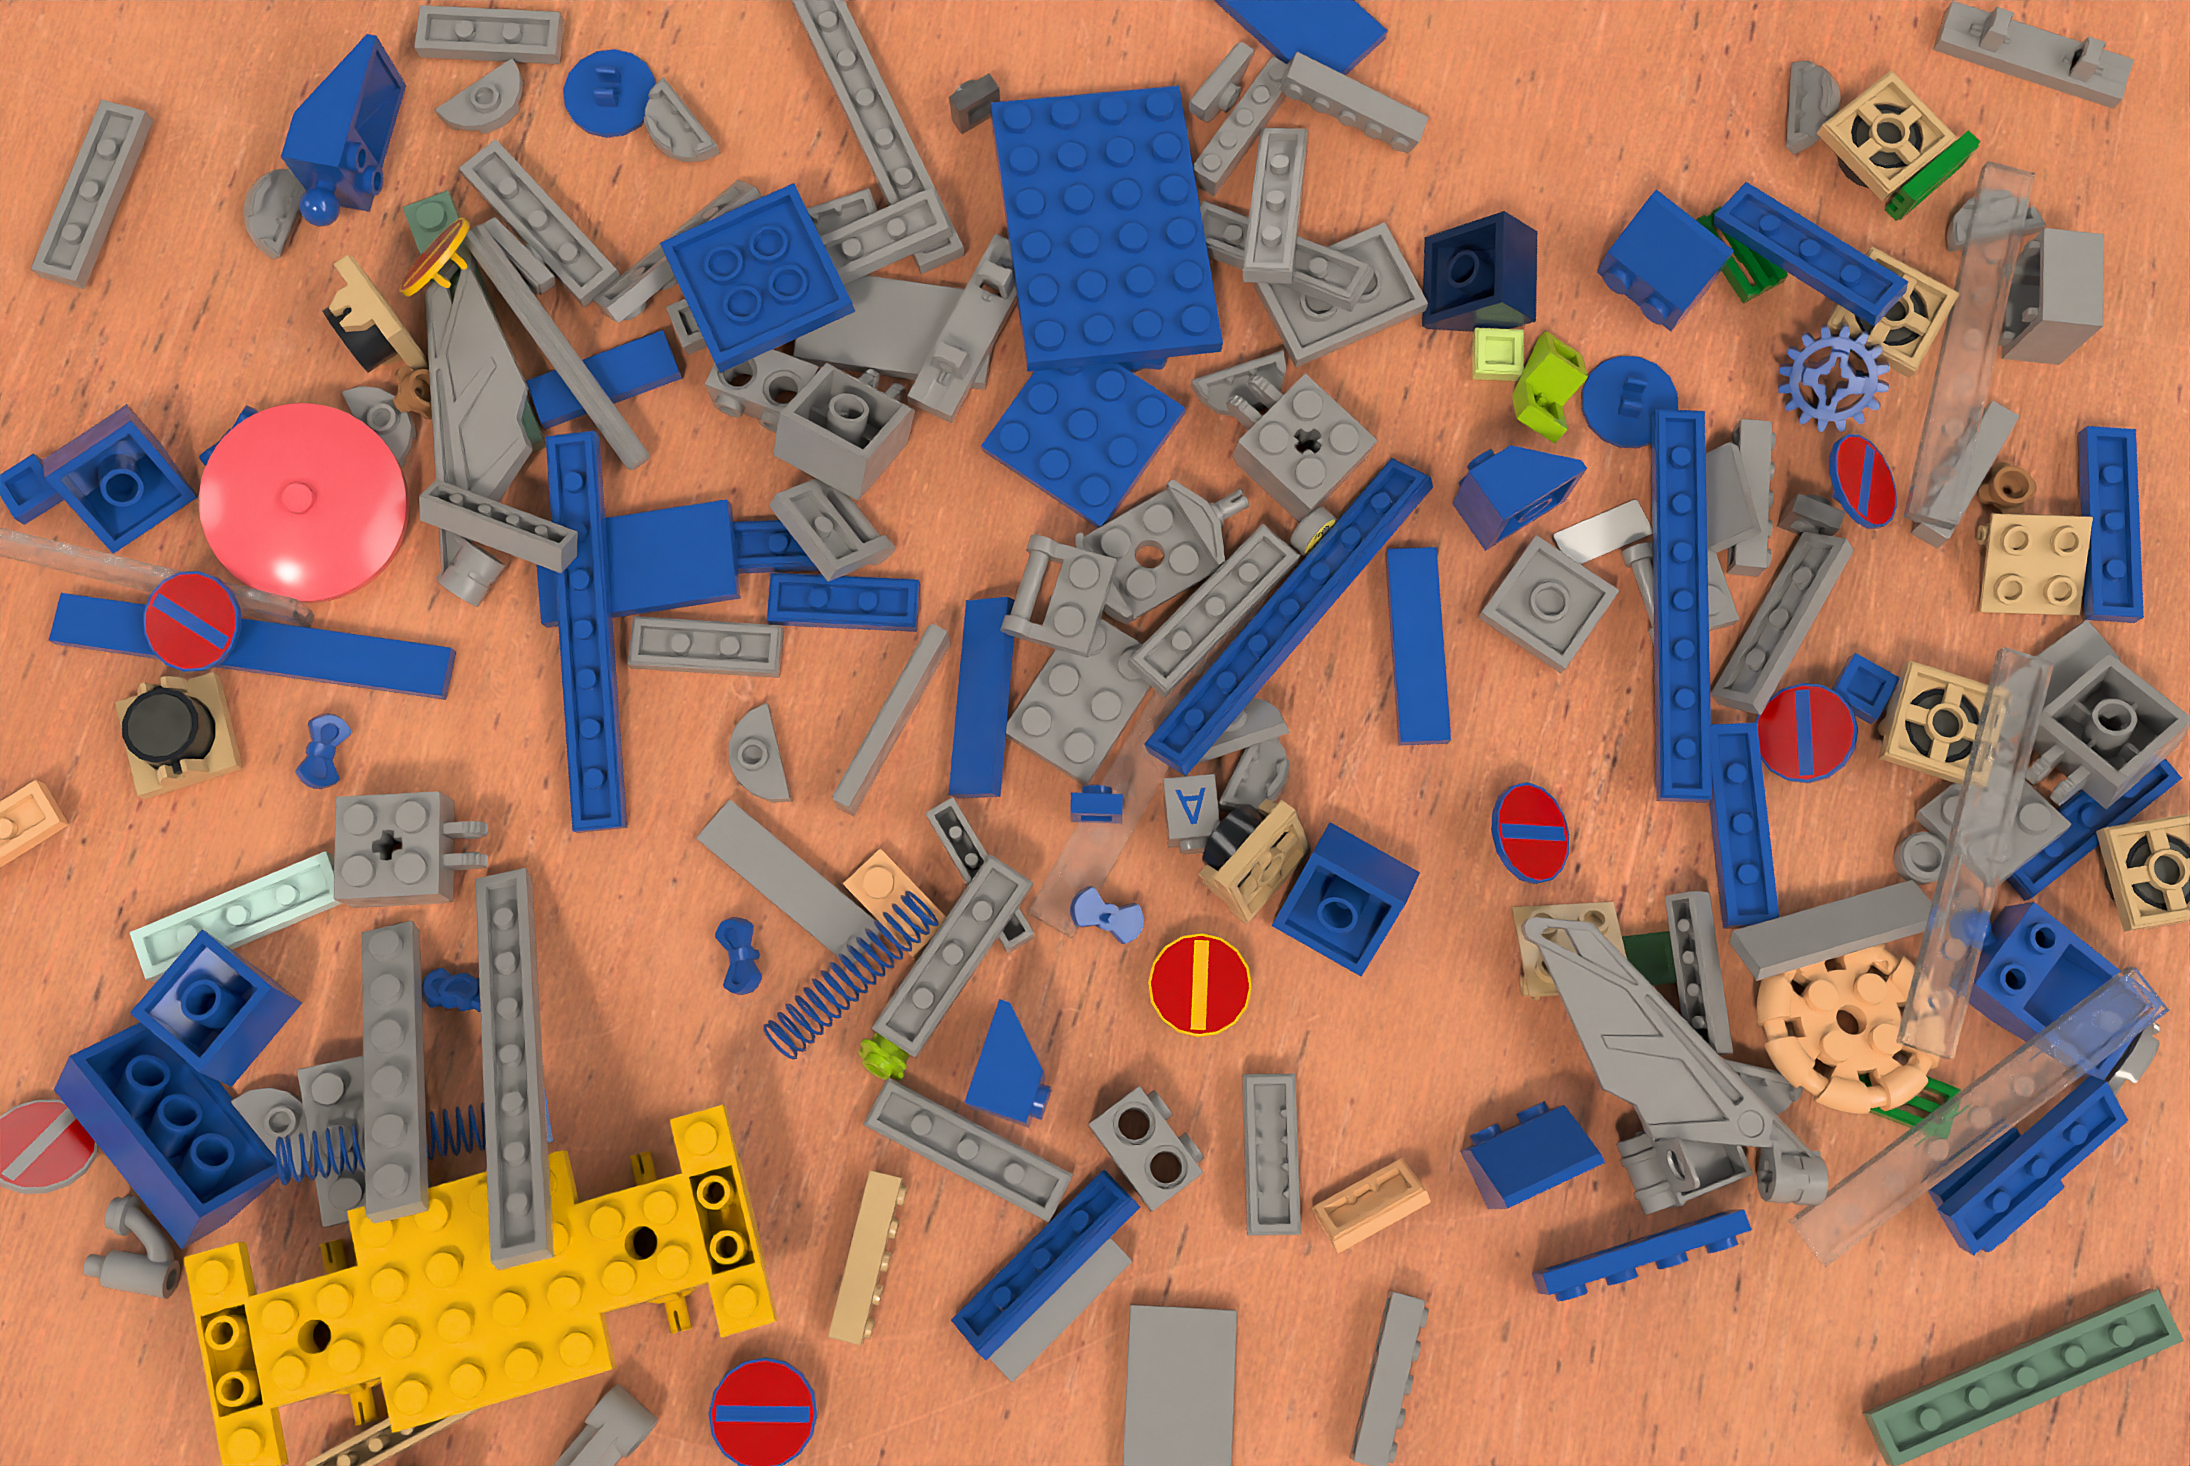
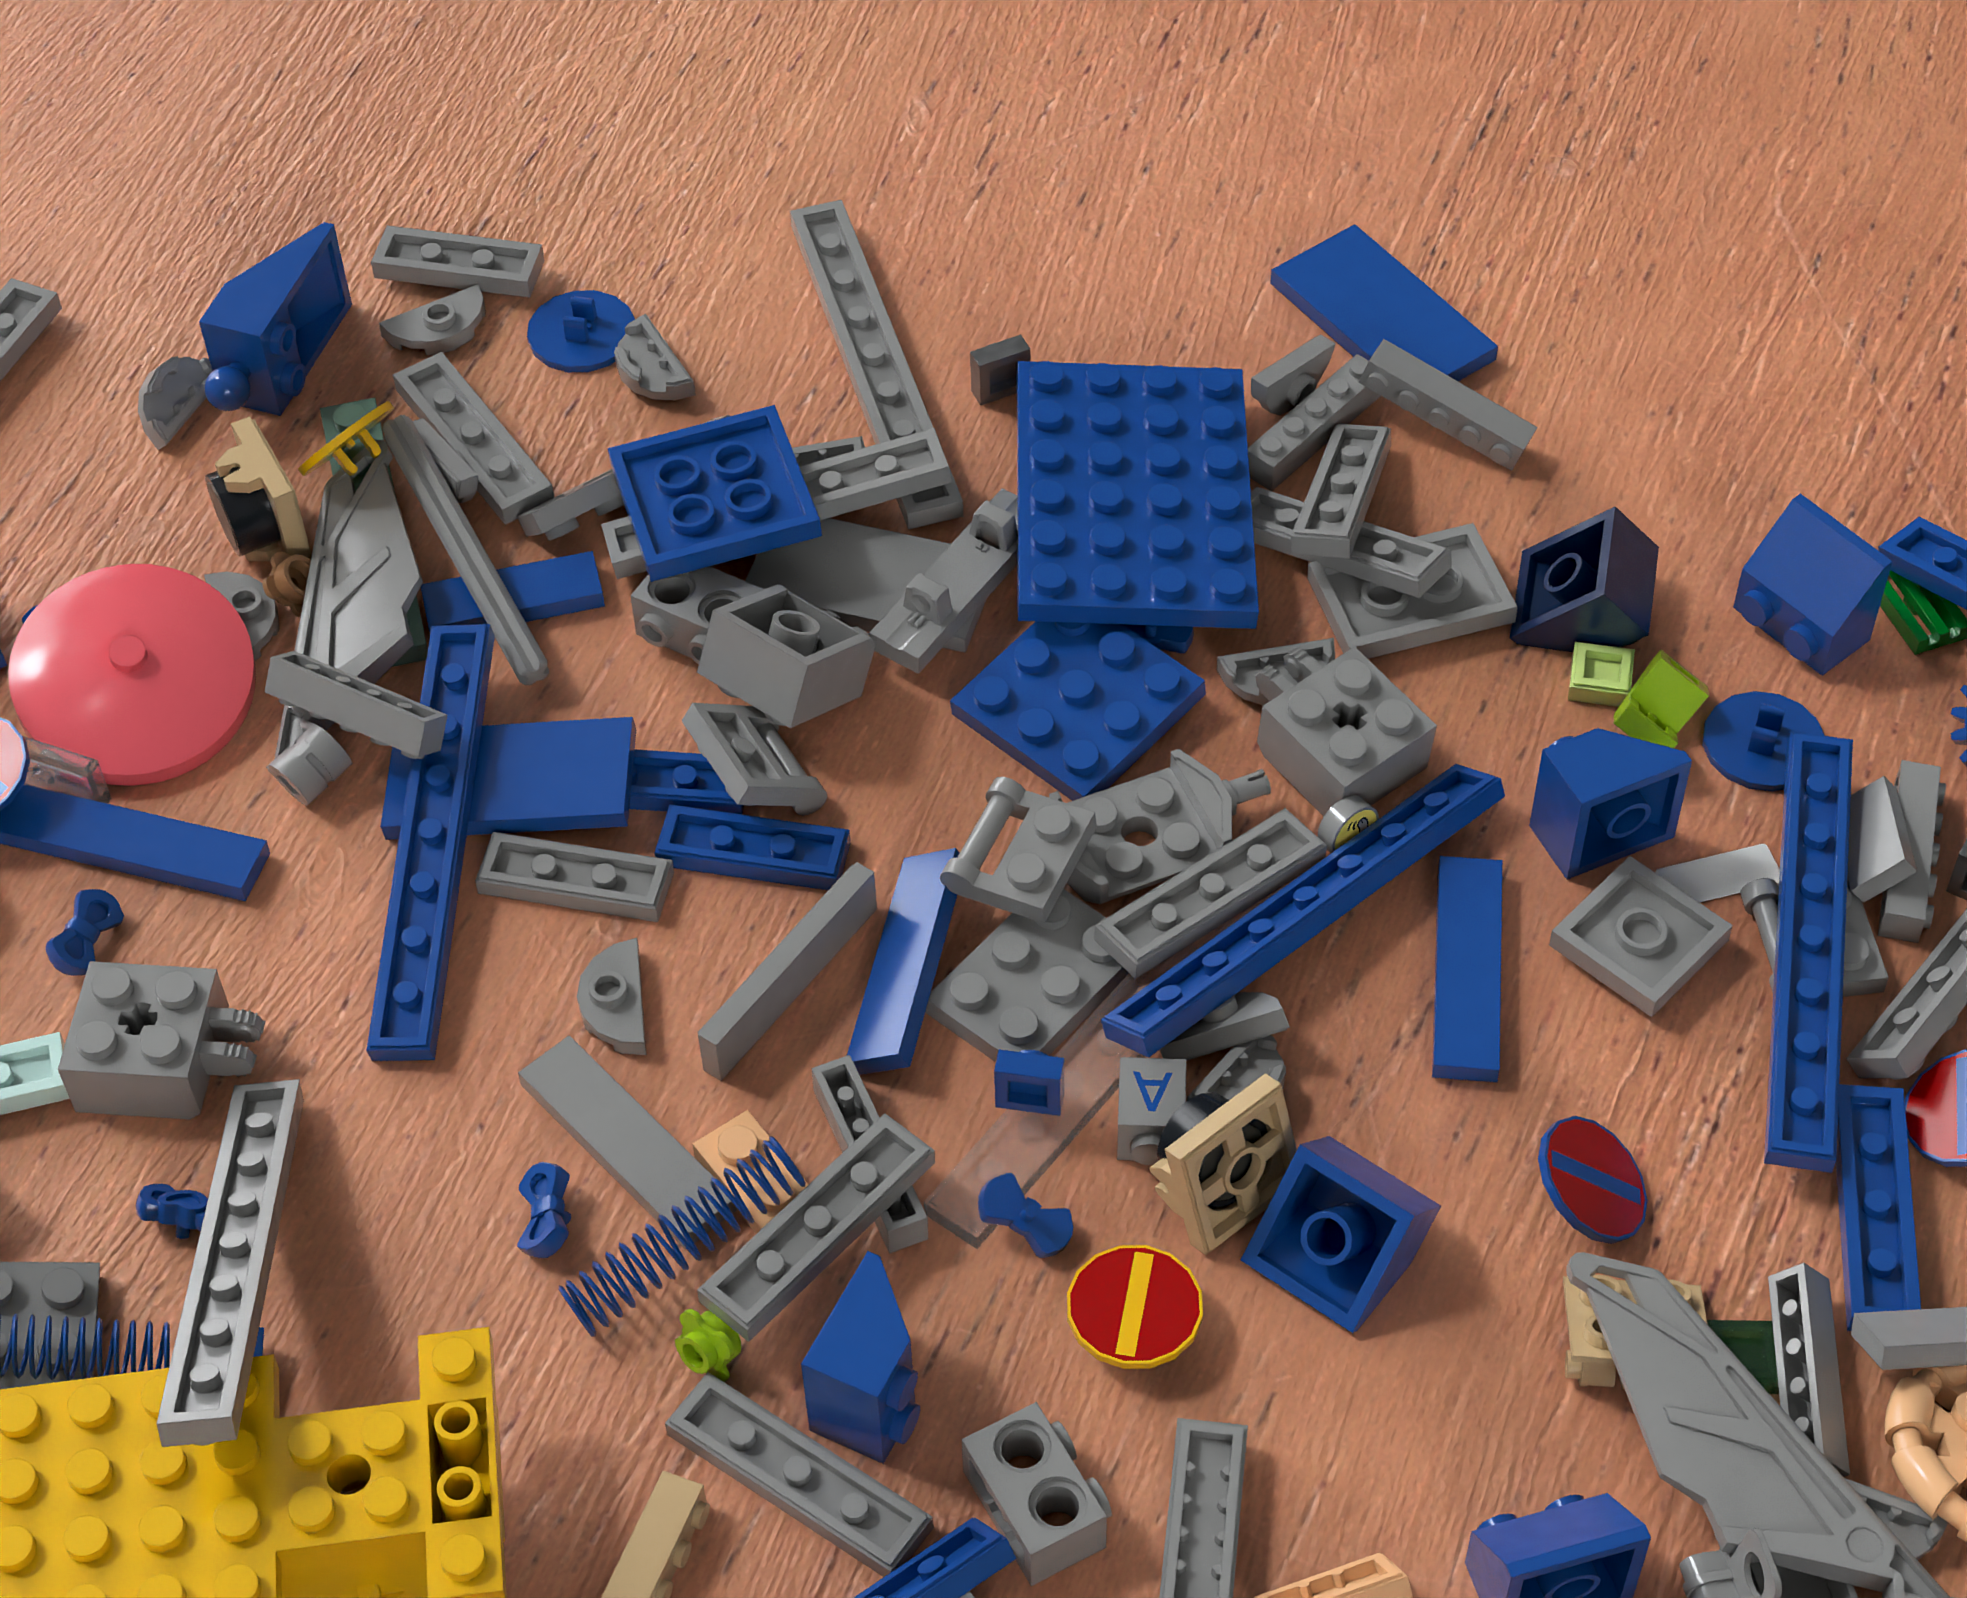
camera: 10 degrees right, 25 degrees down
(393, 1074) = (80, 1264): light grey plate -> none

